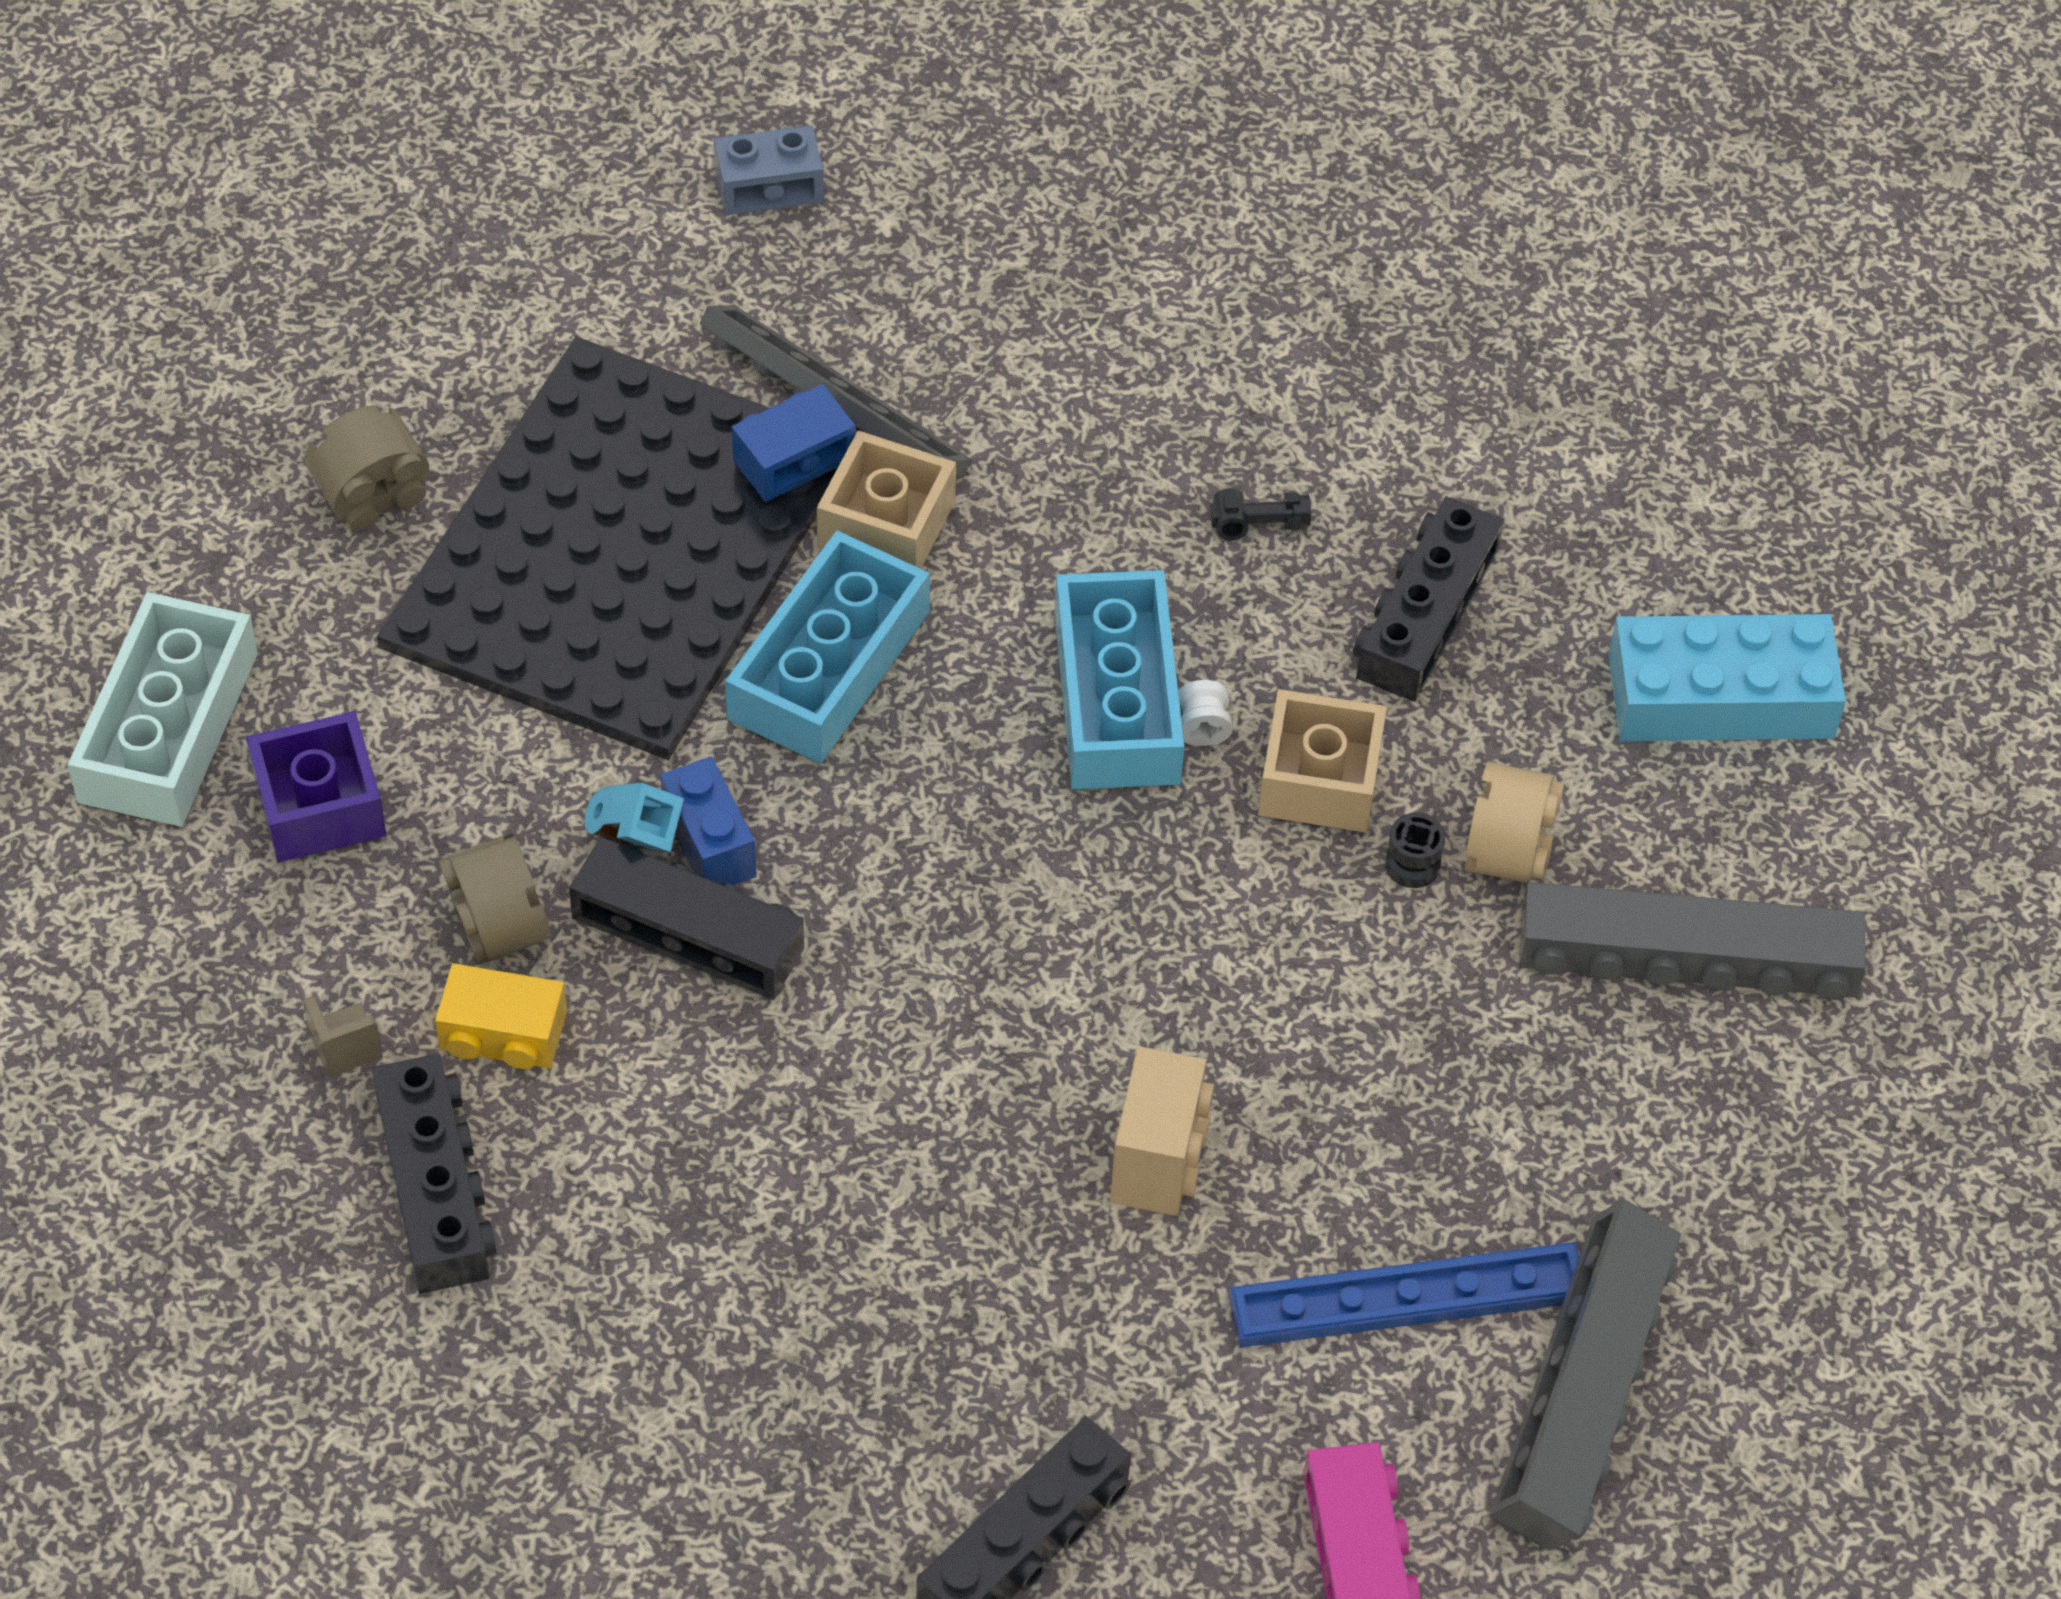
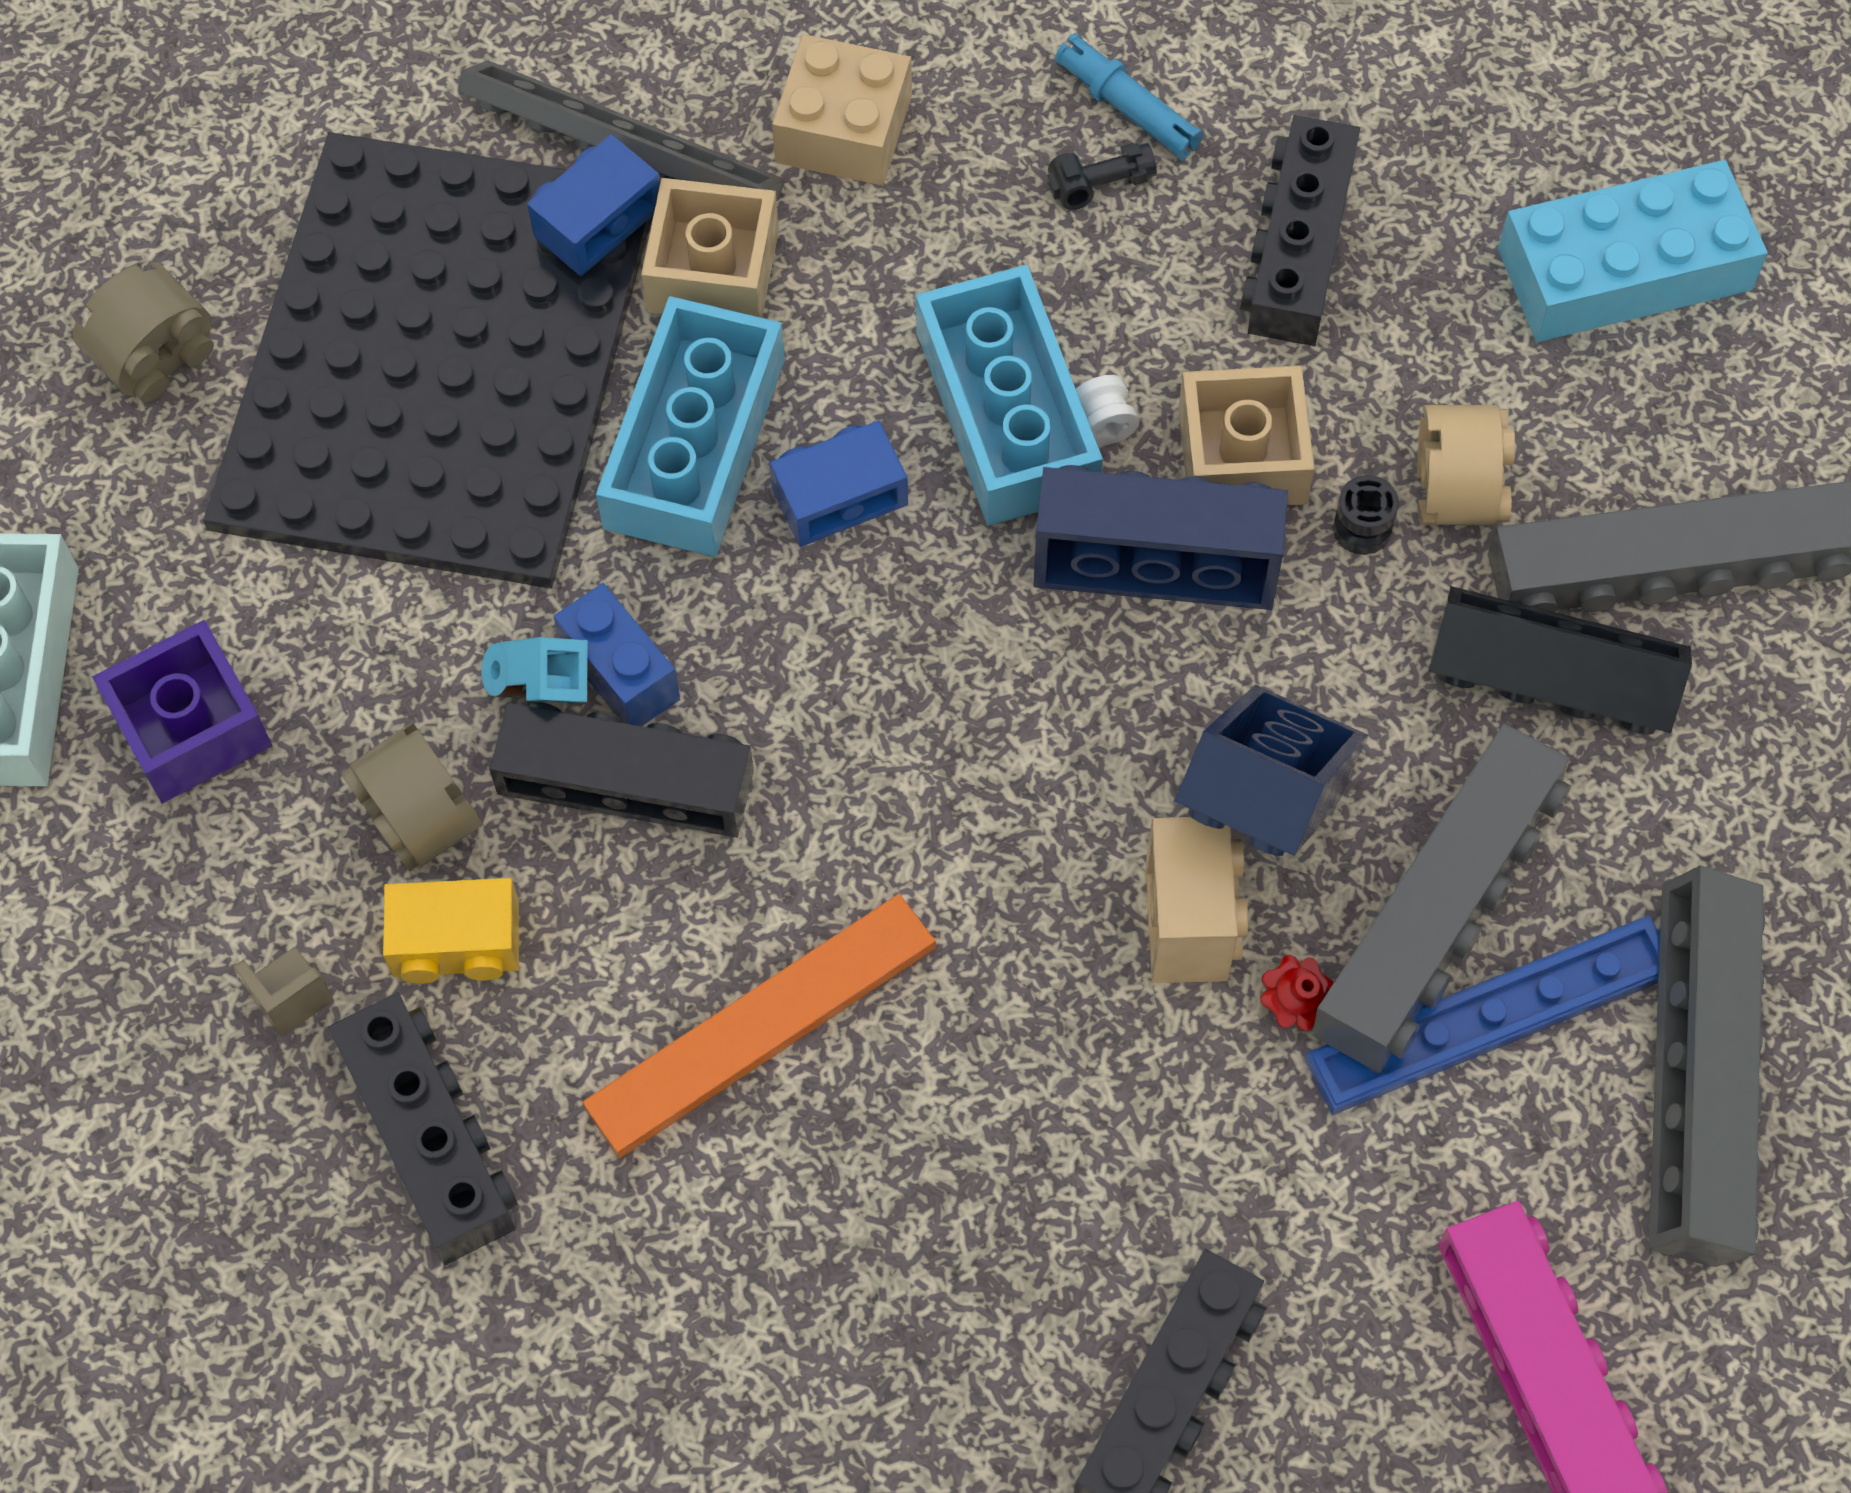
camera: 10 degrees left, 10 degrees up
(749, 1158) = (758, 1025): none -> orange tile
(947, 723) = (839, 482): none -> blue brick
(1039, 410) = (842, 109): none -> tan brick
(1217, 825) = (1159, 537): none -> dark blue brick
(1235, 1235) = (1295, 992): none -> red plant
(1255, 1030) = (1270, 770): none -> dark blue brick
(1291, 437) = (1110, 82): none -> dark azure pin
(1387, 1182) = (1441, 898): none -> dark grey brick
(1554, 1008) = (1560, 661): none -> black brick

